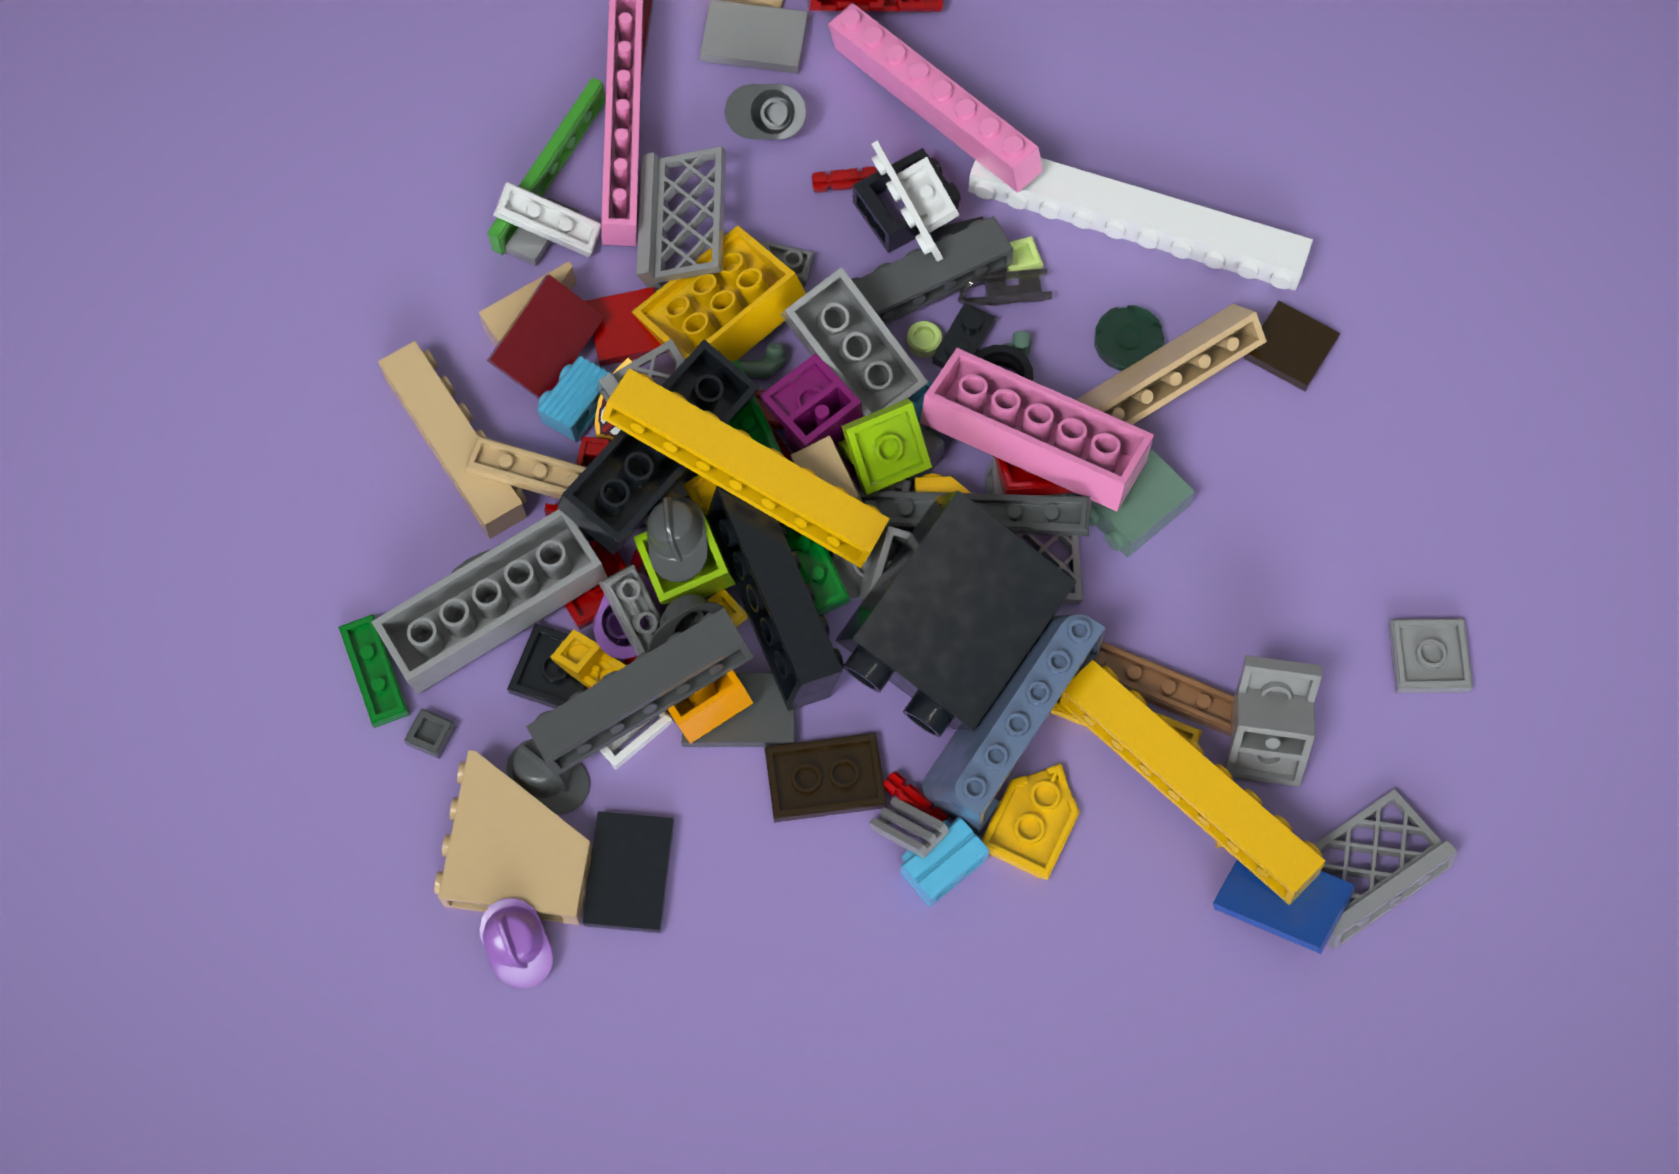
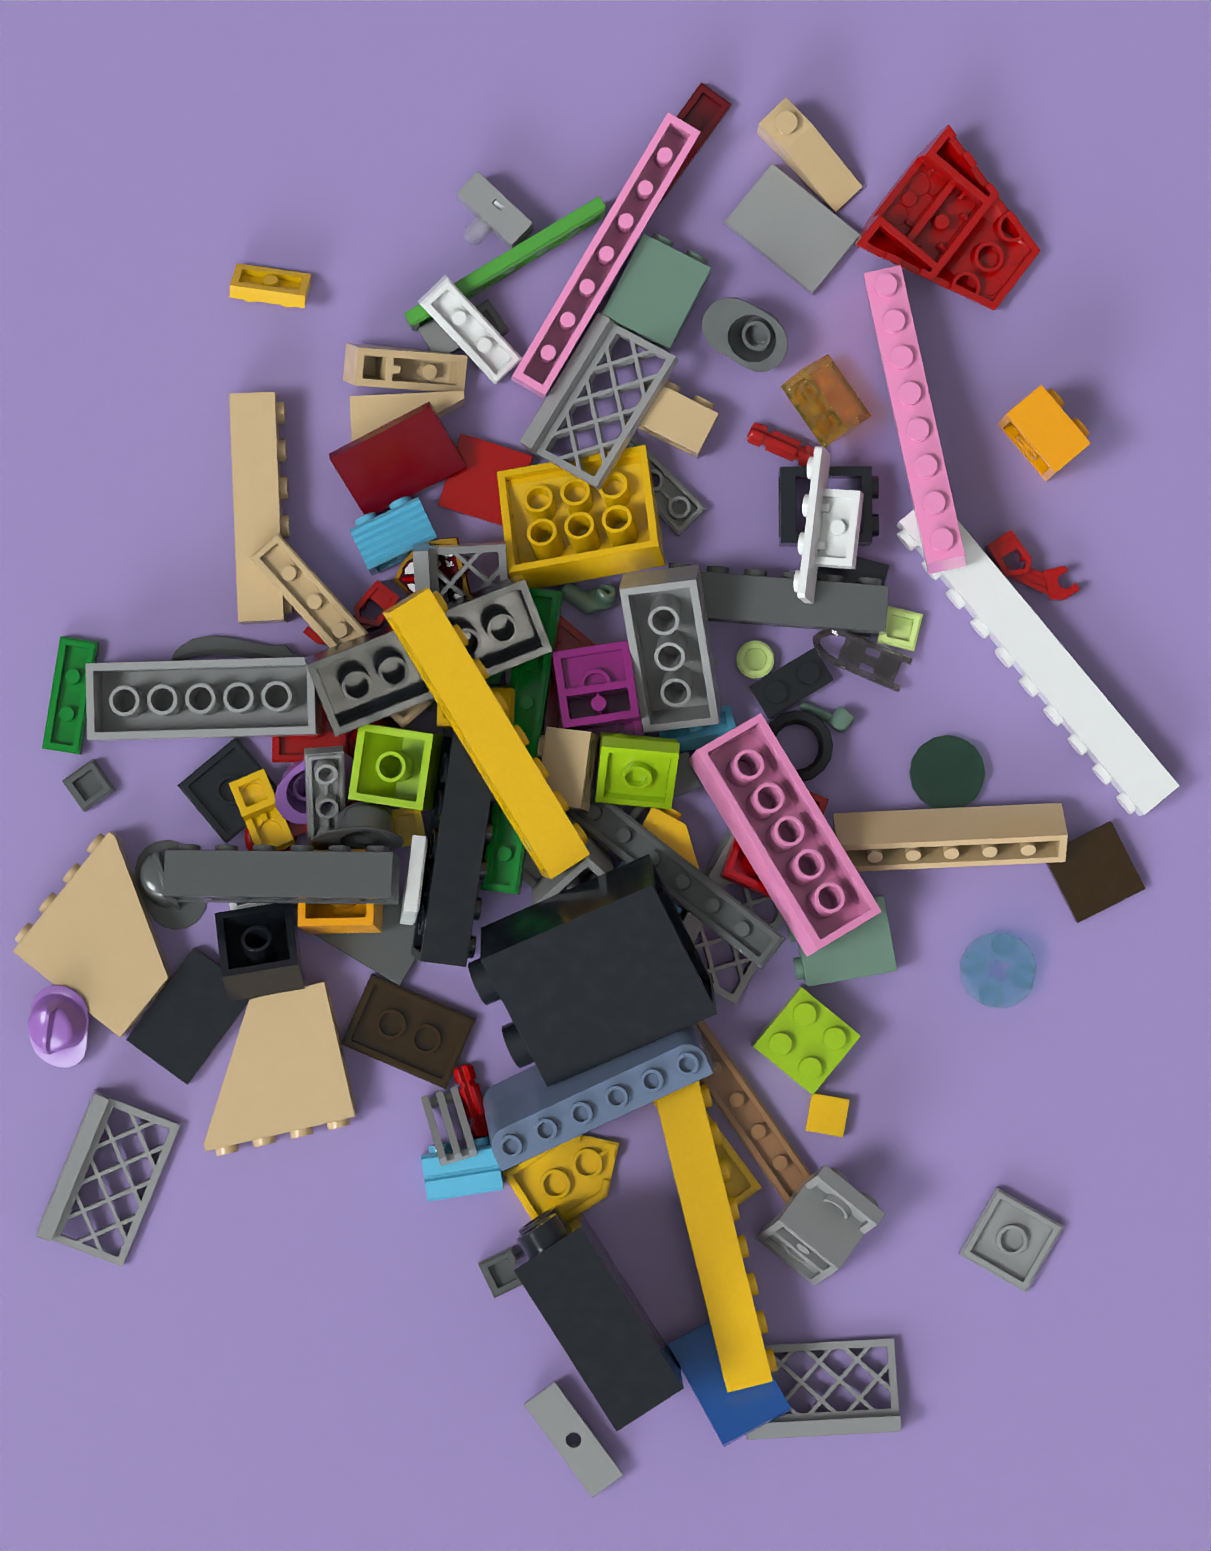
camera: 30 degrees right, 20 degrees up
(380, 272) = (270, 285): none -> yellow plate
(497, 277) = (403, 368): none -> tan slope
(514, 135) = (492, 214): none -> light grey piece
(600, 1055) = (77, 1165): none -> light grey fence
(657, 772) = (259, 951): none -> black brick
(677, 539) = (395, 751): dark grey piece -> none
(678, 119) = (657, 291): none -> sand green brick
(739, 868) = (283, 1072): none -> tan slope
(753, 201) = (679, 420): none -> tan brick
(756, 638) = (413, 880): none -> white tile
(856, 126) = (826, 401): none -> clear yellow brick
(1032, 930) = (499, 1272): none -> dark grey tile
(1036, 59) = (1045, 431): none -> light orange brick
(1107, 166) = (1043, 582): none -> red piece
(1140, 893) = (595, 1316): none -> black brick
(1158, 590) = (805, 1040): none -> lime brick
(1210, 1044) = (586, 1458): none -> light grey tile
(1214, 643) = (827, 1114): none -> yellow tile
(1265, 473) = (1018, 976): none -> clear light blue plate

